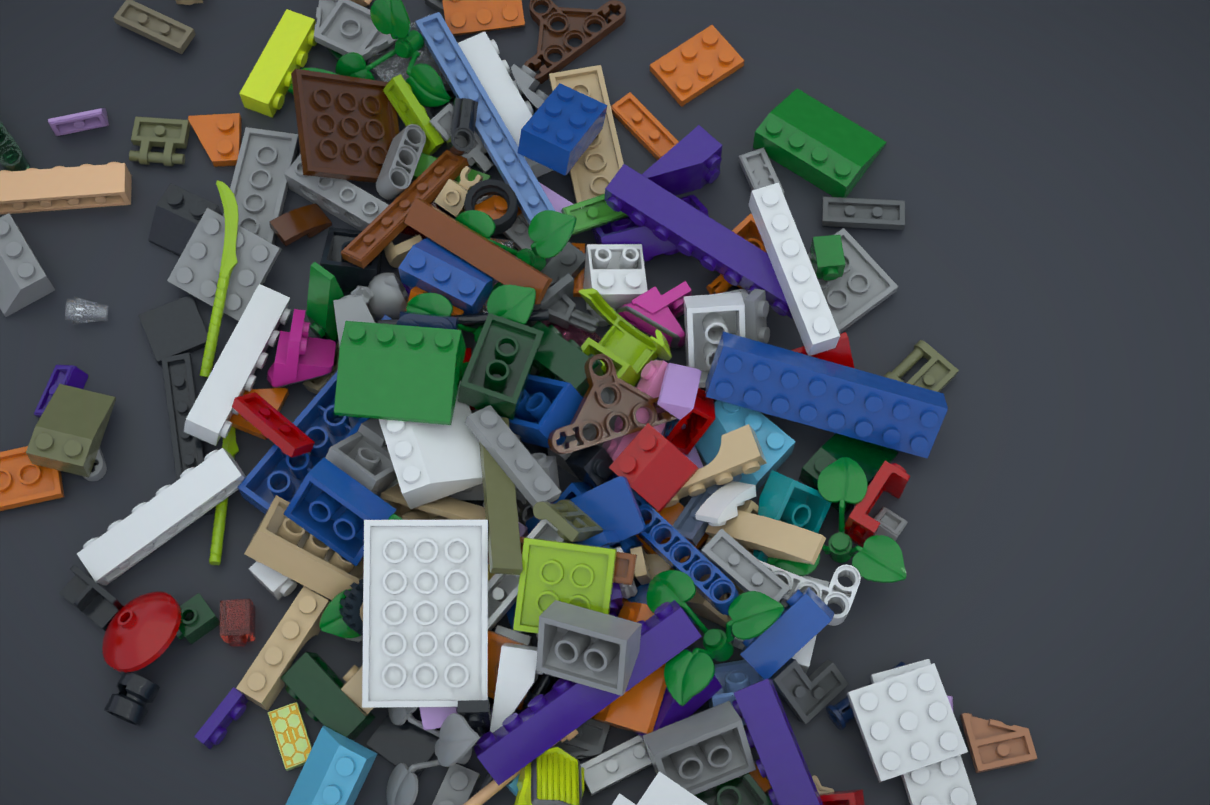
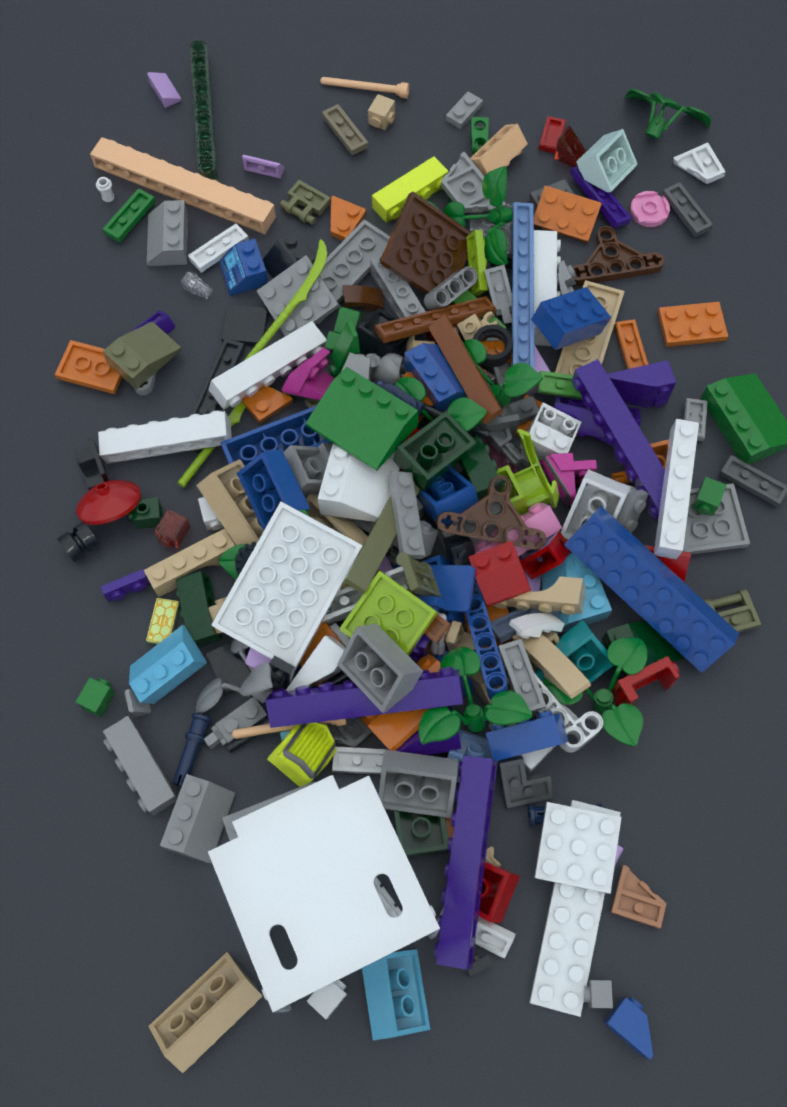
camera: 30 degrees right, 0 degrees up
(84, 250) = (217, 247): none -> white plate
(132, 260) = (243, 268): none -> blue slope
(273, 424) = (265, 413): red plate -> none
(298, 262) = (345, 314): none -> green brick
(462, 124) = (504, 282): black piece -> none
(679, 389) = (547, 530): lavender slope -> none
(890, 523) = (647, 704): light grey slope -> none

